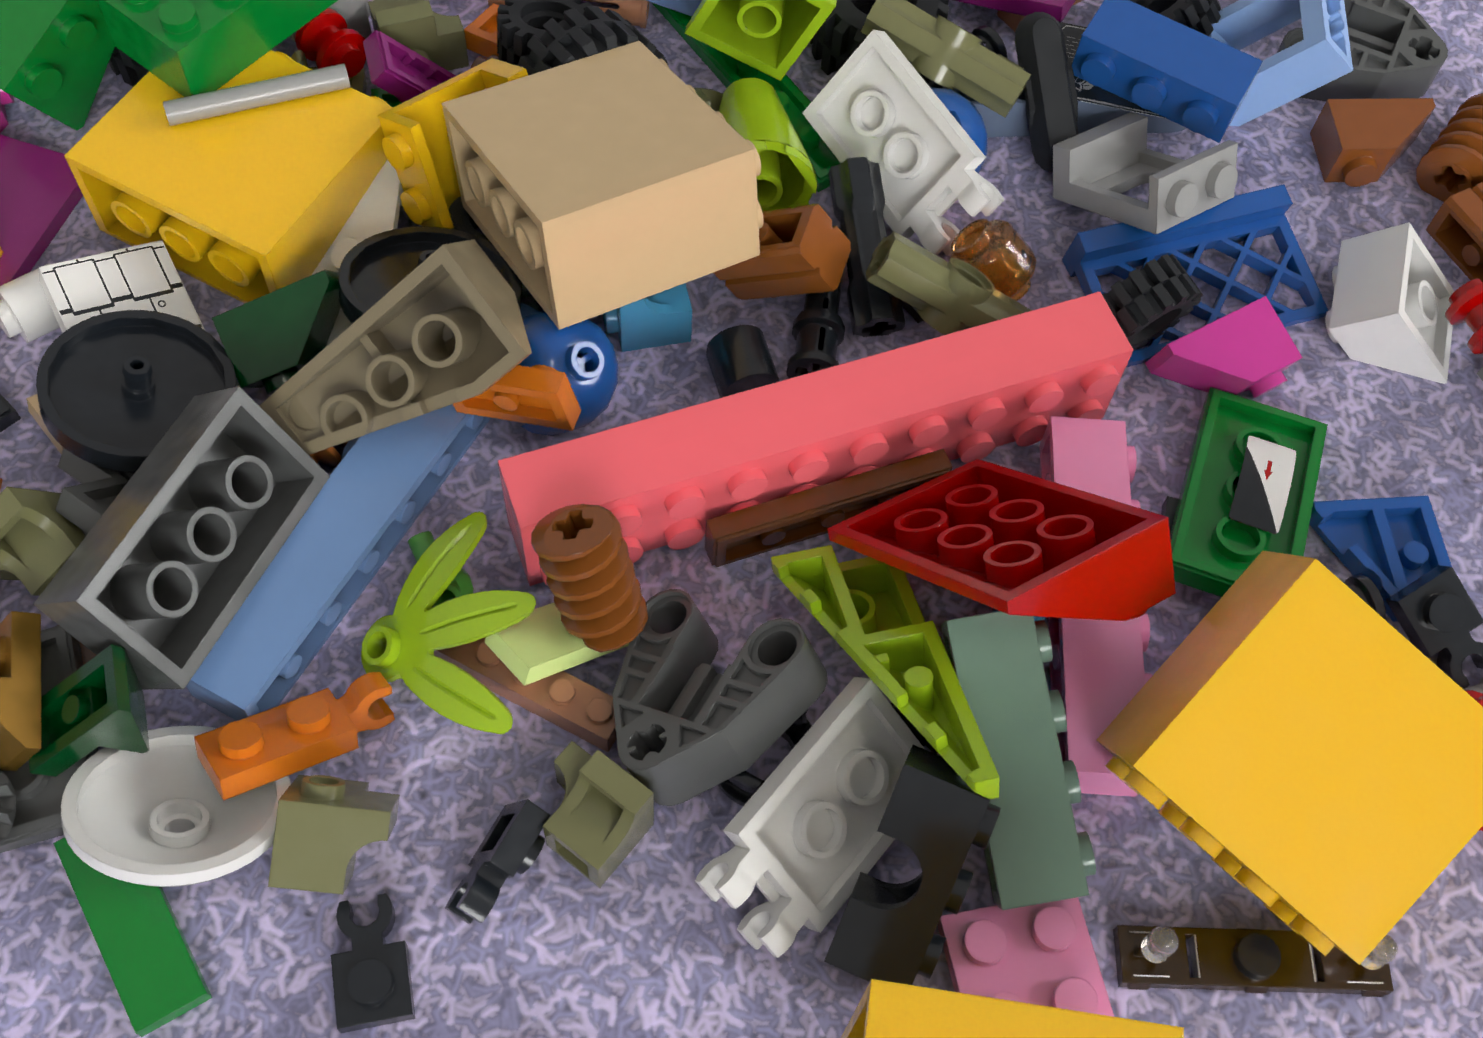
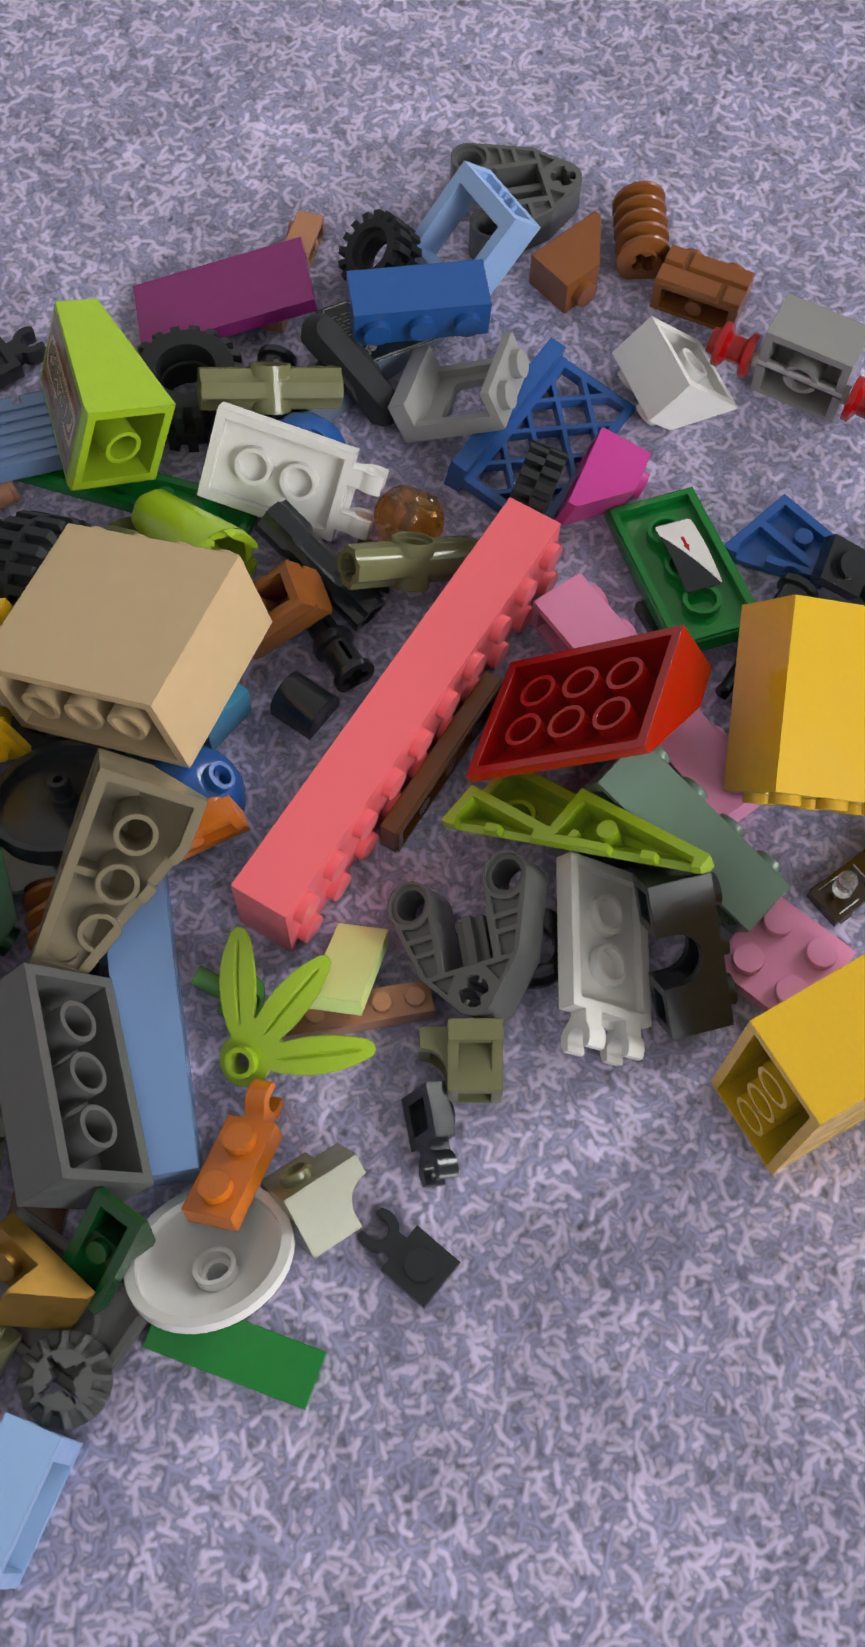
camera: 35 degrees left, 5 degrees up
(591, 575) = (351, 914): dark orange piece -> none

